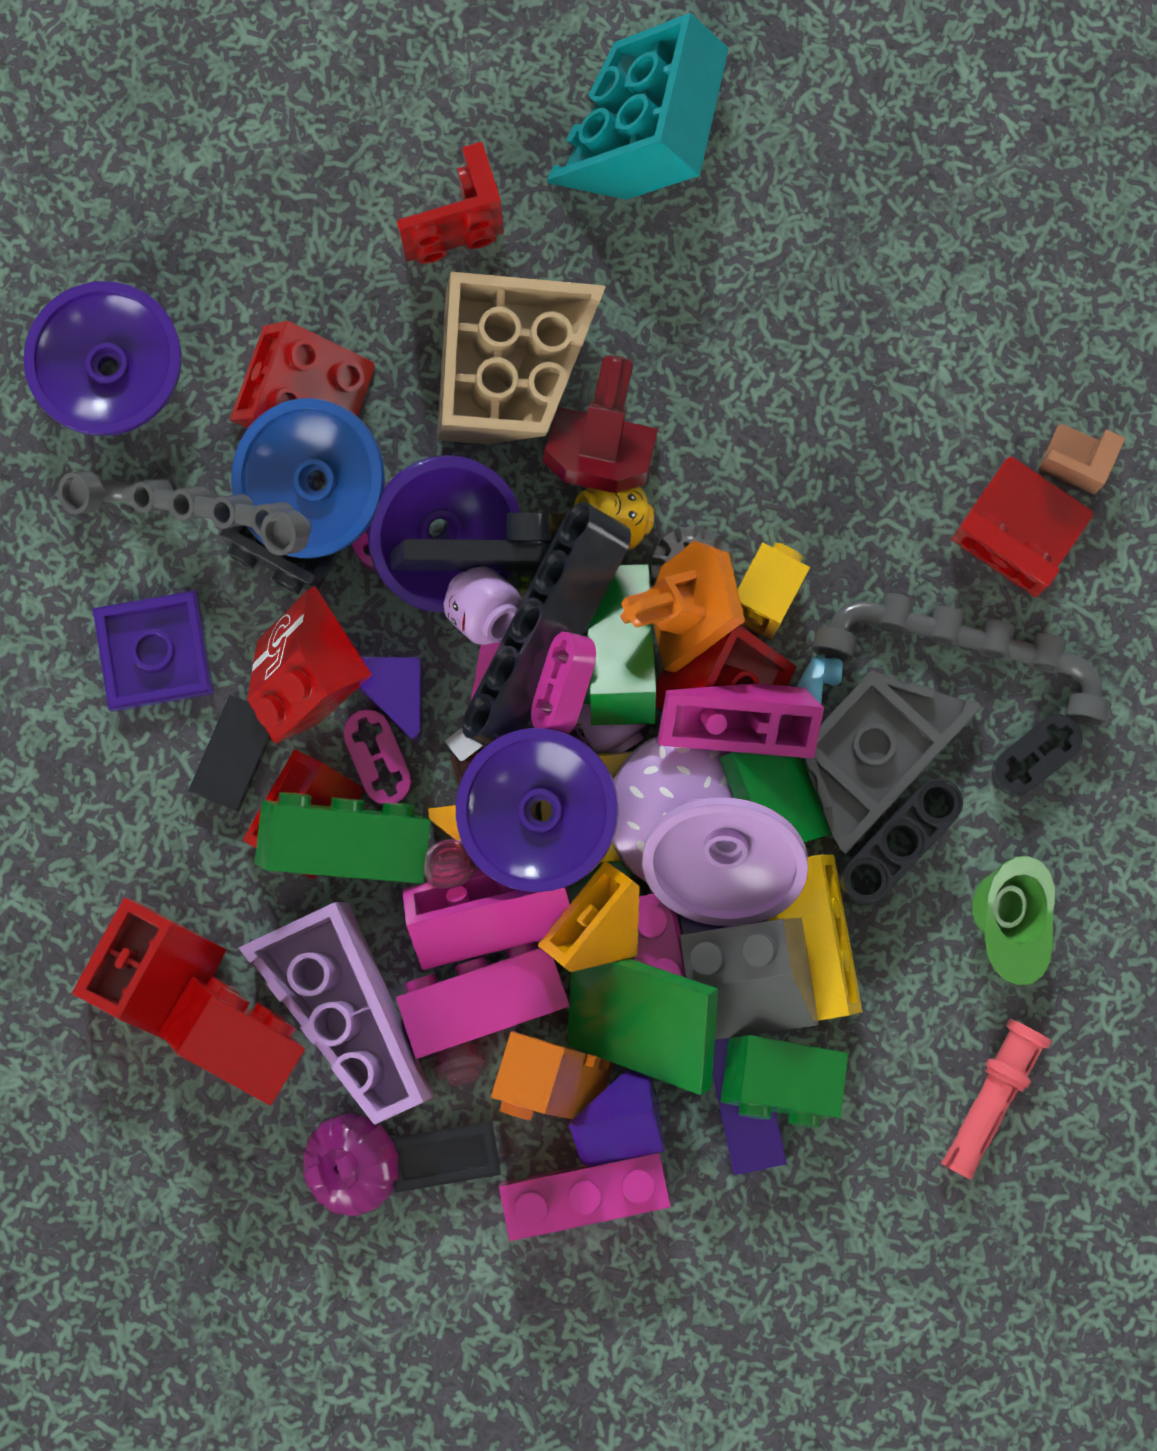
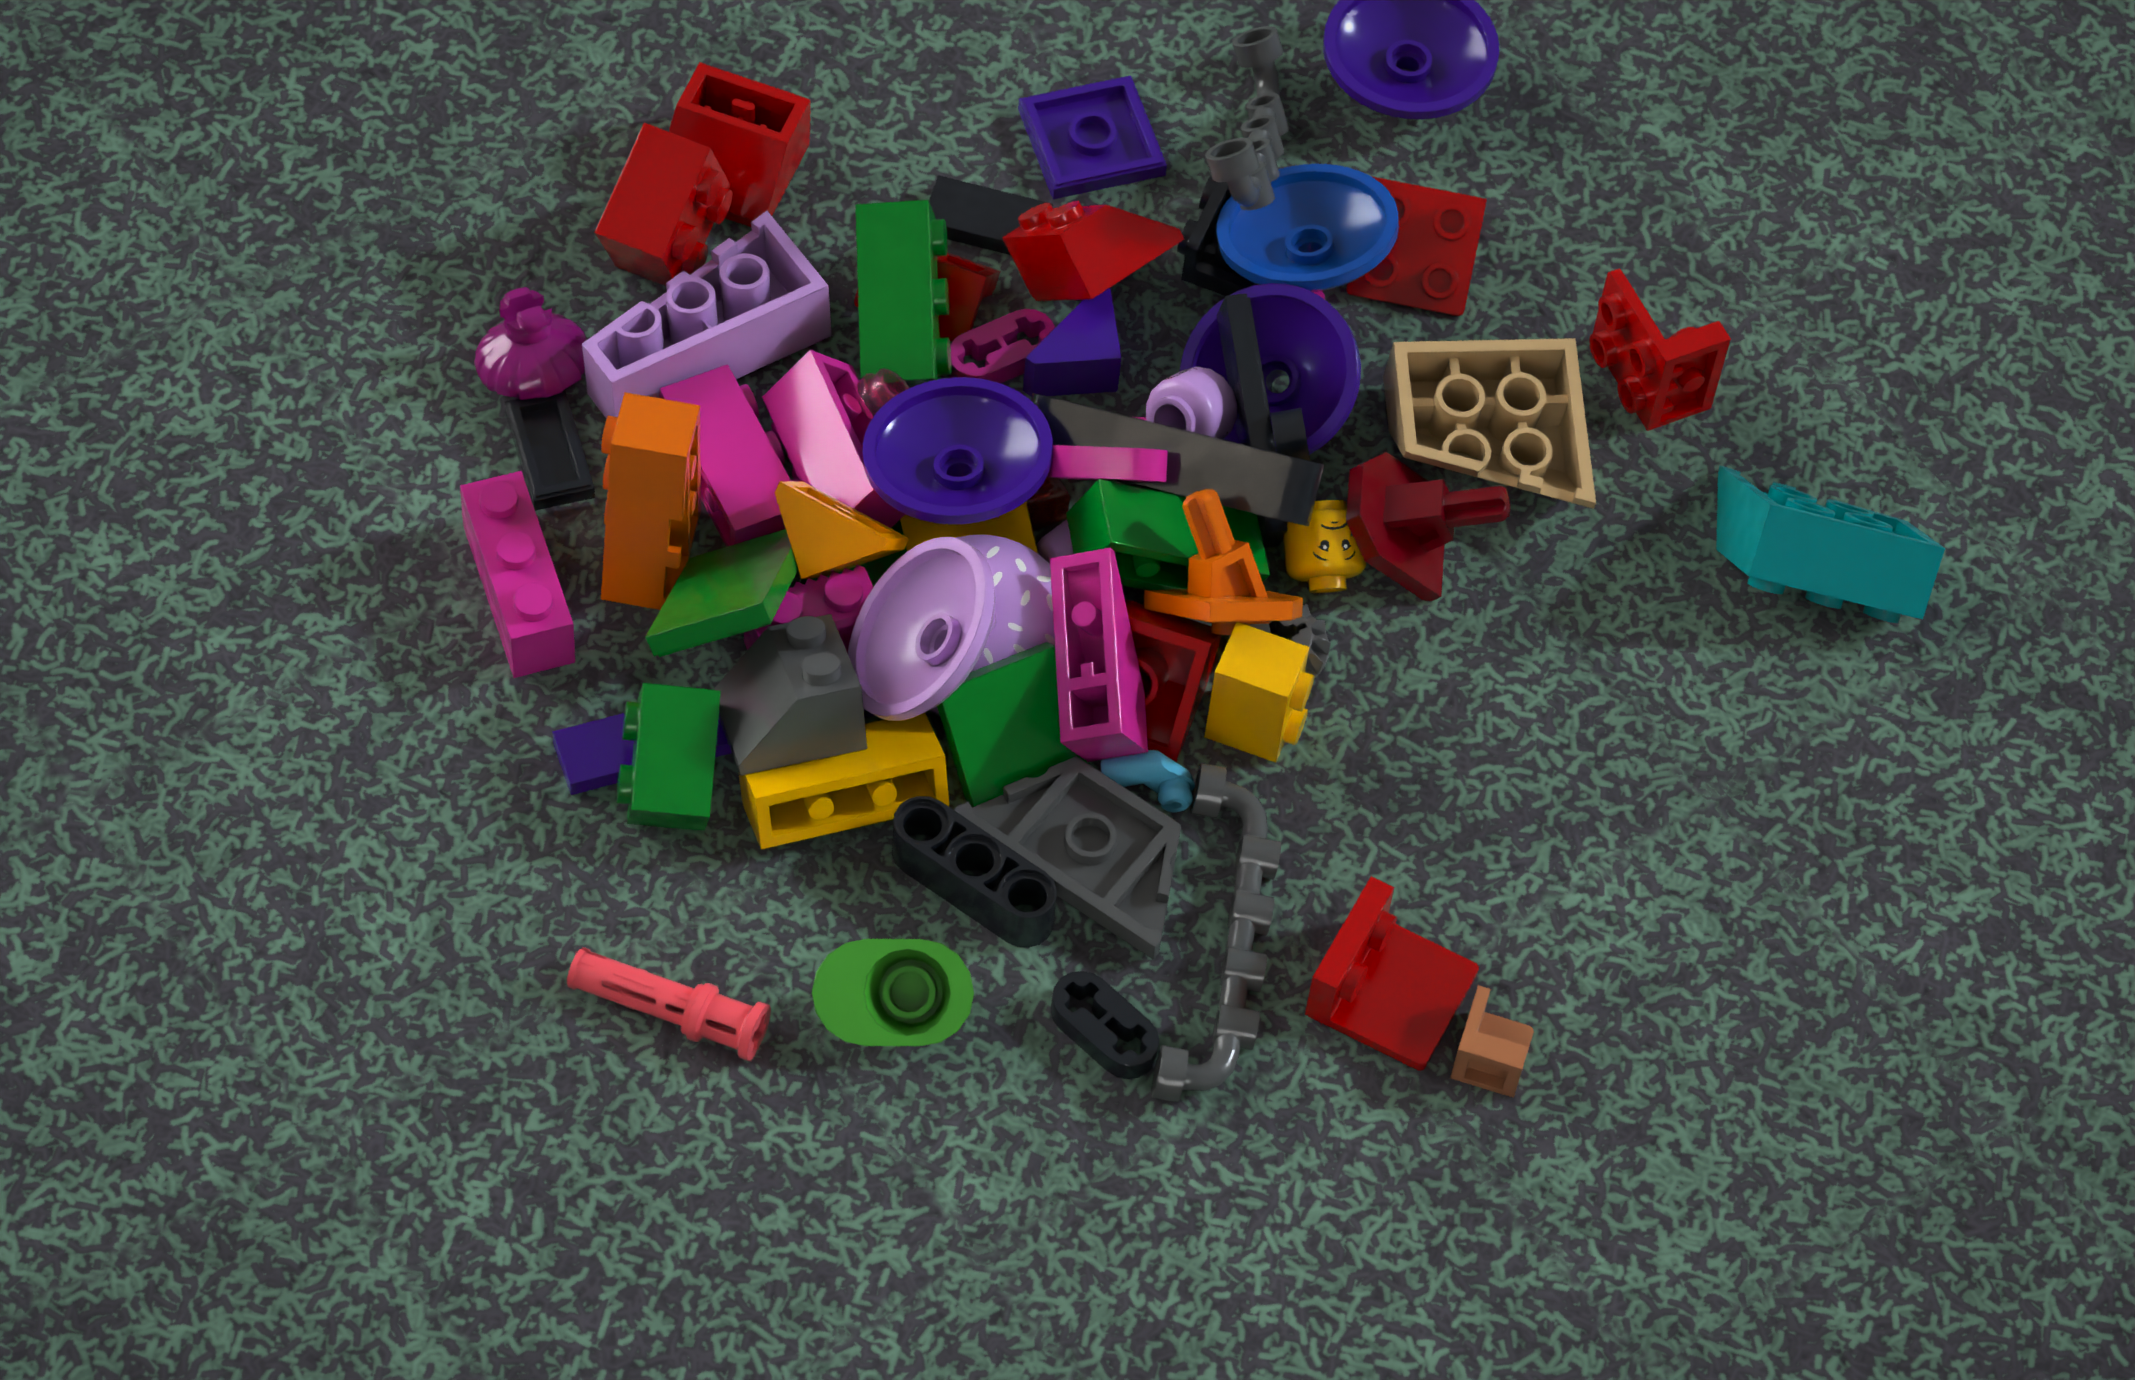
camera: 80 degrees right, 25 degrees down
(620, 1122) = (608, 591): dark purple slope -> none

